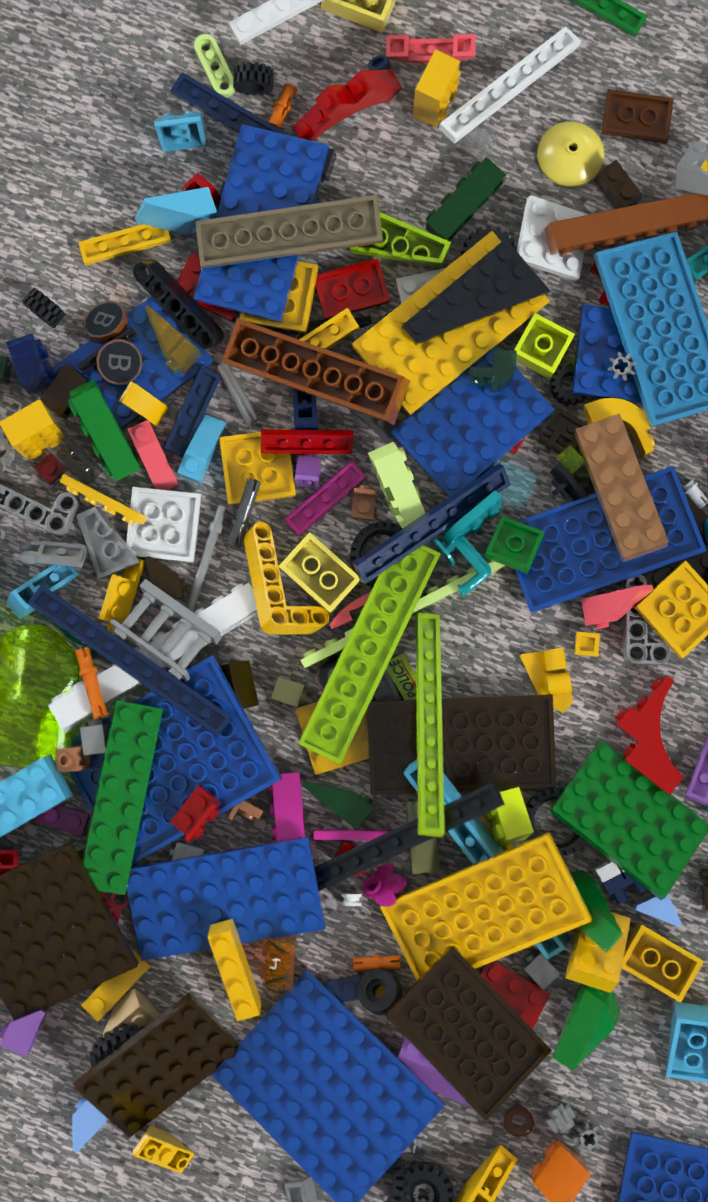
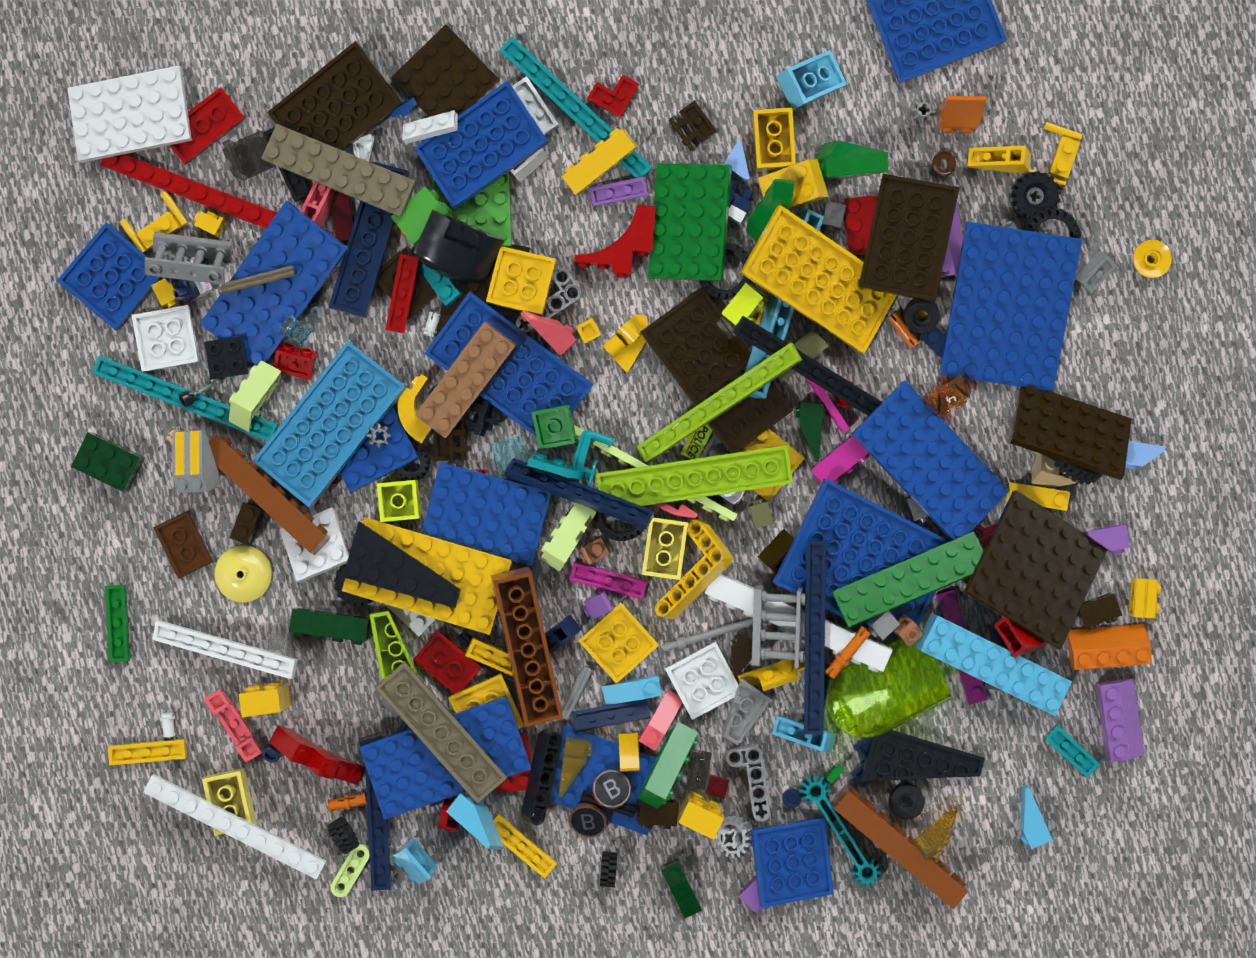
camera: 120 degrees left, 5 degrees up
(30, 363) = (654, 849): clear blue brick -> none
(54, 553) = (775, 742): light grey hinge -> none
(110, 505) = (716, 740): yellow plate -> none
(163, 1150) = (1123, 390): yellow slope -> none
(196, 812) = (887, 521): red bracket -> none
(234, 969) = (973, 423): yellow brick -> none
(240, 522) = (665, 627): dark grey pin -> none
(248, 809) = (859, 486): nougat bracket -> none
(306, 441) = (579, 619): red plate -> none
(351, 899) = (872, 376): white bush -> none
(386, 885) = (847, 358): dark pink plate -> none
(500, 374) = (440, 516): clear green brick -> none
(560, 1117) = (922, 137): light grey gear -> none
(571, 459) = (467, 427): clear neon green slope -> none

